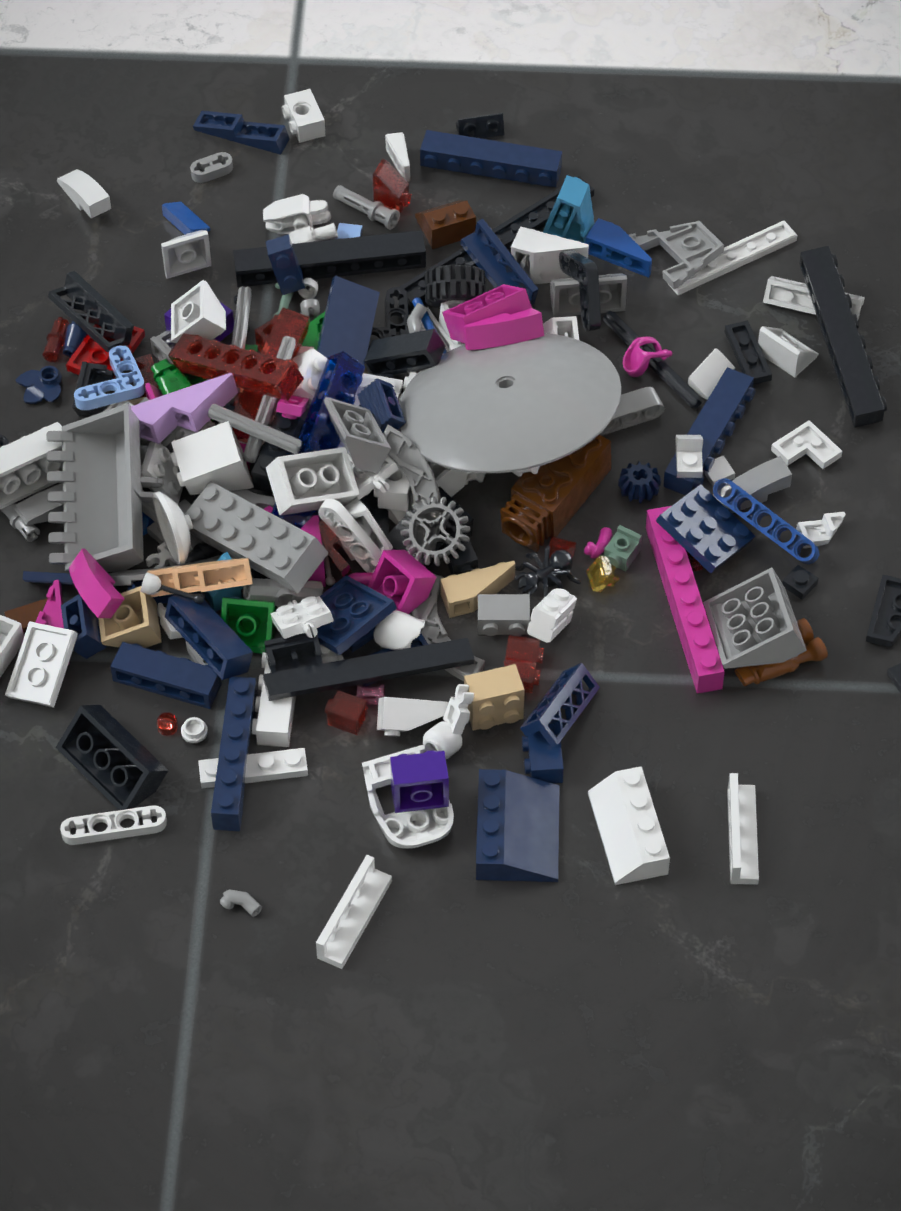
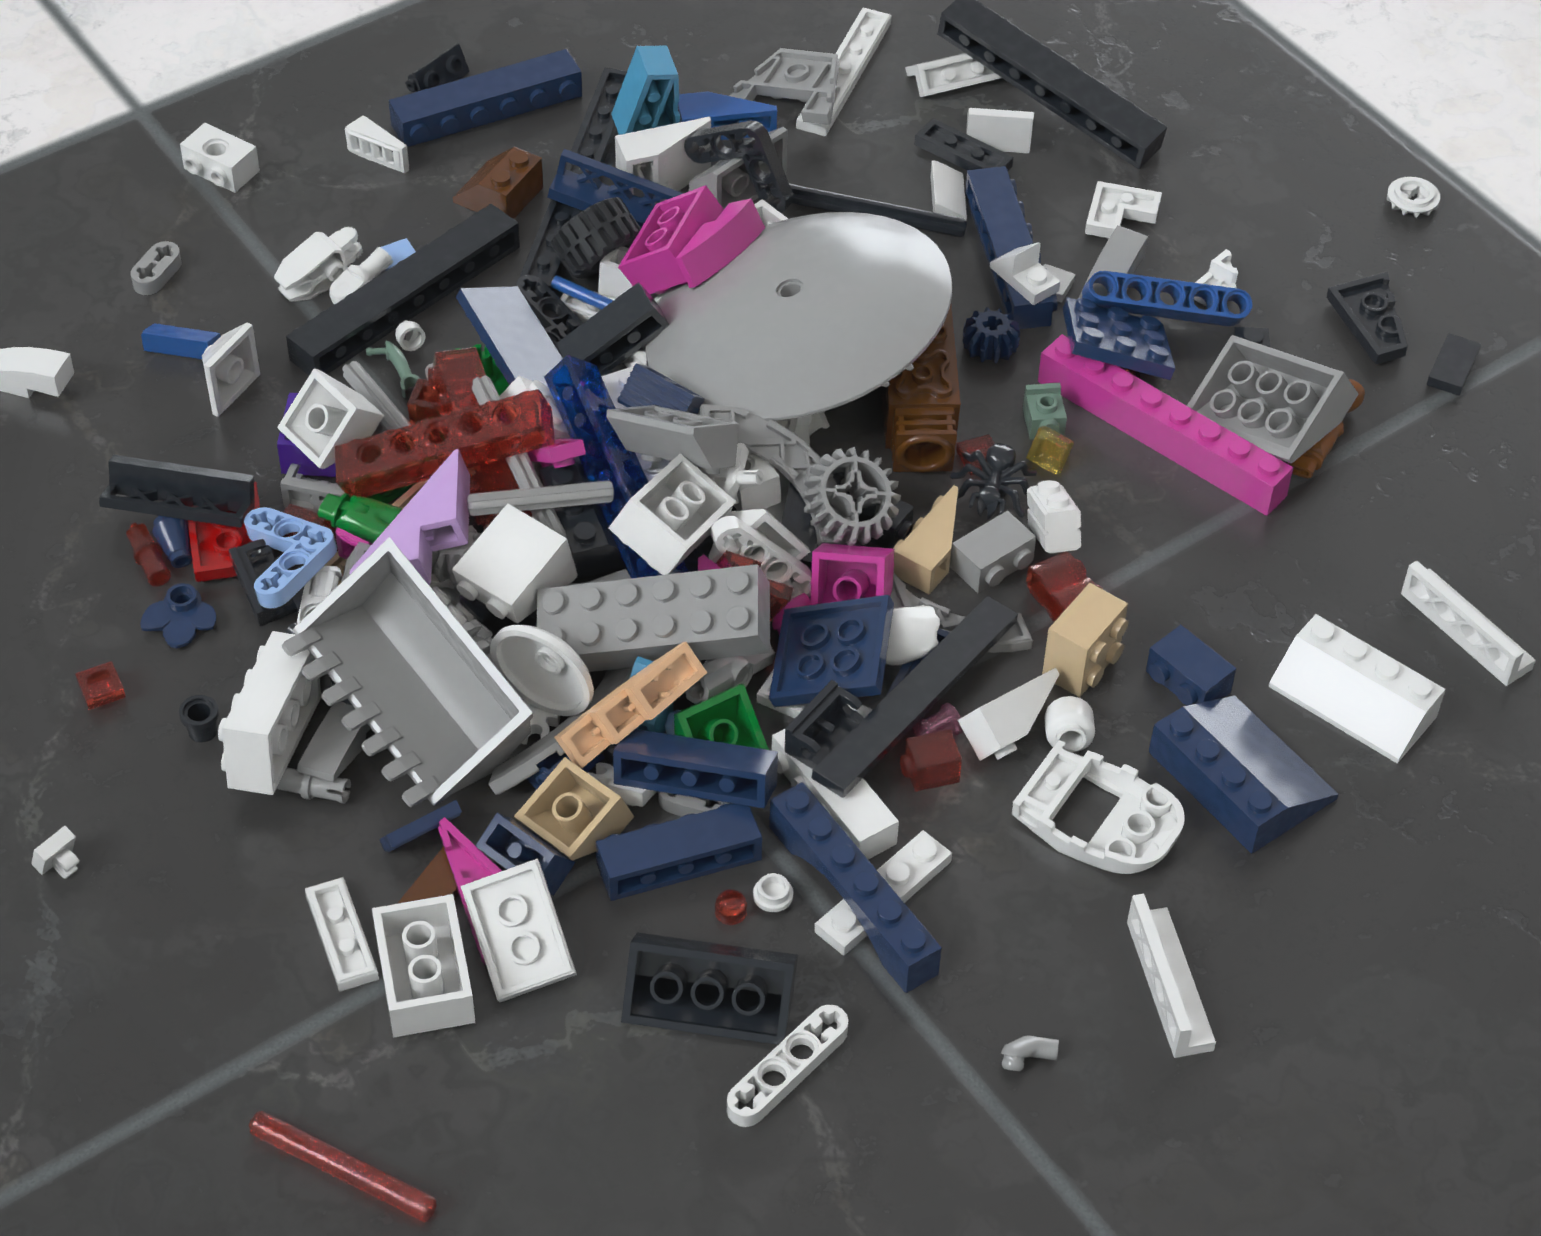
camera: 40 degrees left, 5 degrees down
(95, 585) = (504, 791): dark pink slope -> none
(152, 585) = (581, 746): hinge -> none
(234, 128) = (138, 214): dark blue slope -> none
(285, 264) = (376, 313): dark blue brick -> none
(301, 617) = (798, 678): white plate -> none
(310, 307) = (427, 353): light grey hinge -> none
(375, 210) = (405, 215): light grey pin -> none
(390, 187) = (407, 182): clear red slope -> none
(414, 320) = (578, 302): light grey arm -> none
(419, 781) = (1118, 772): dark purple brick -> none
(457, 710) = (1068, 674): white plate -> none
(560, 697) = (1160, 604): dark blue fence -> none
(597, 549) = (1017, 421): dark pink arm -> none
(636, 360) = (869, 203): dark pink piece -> none

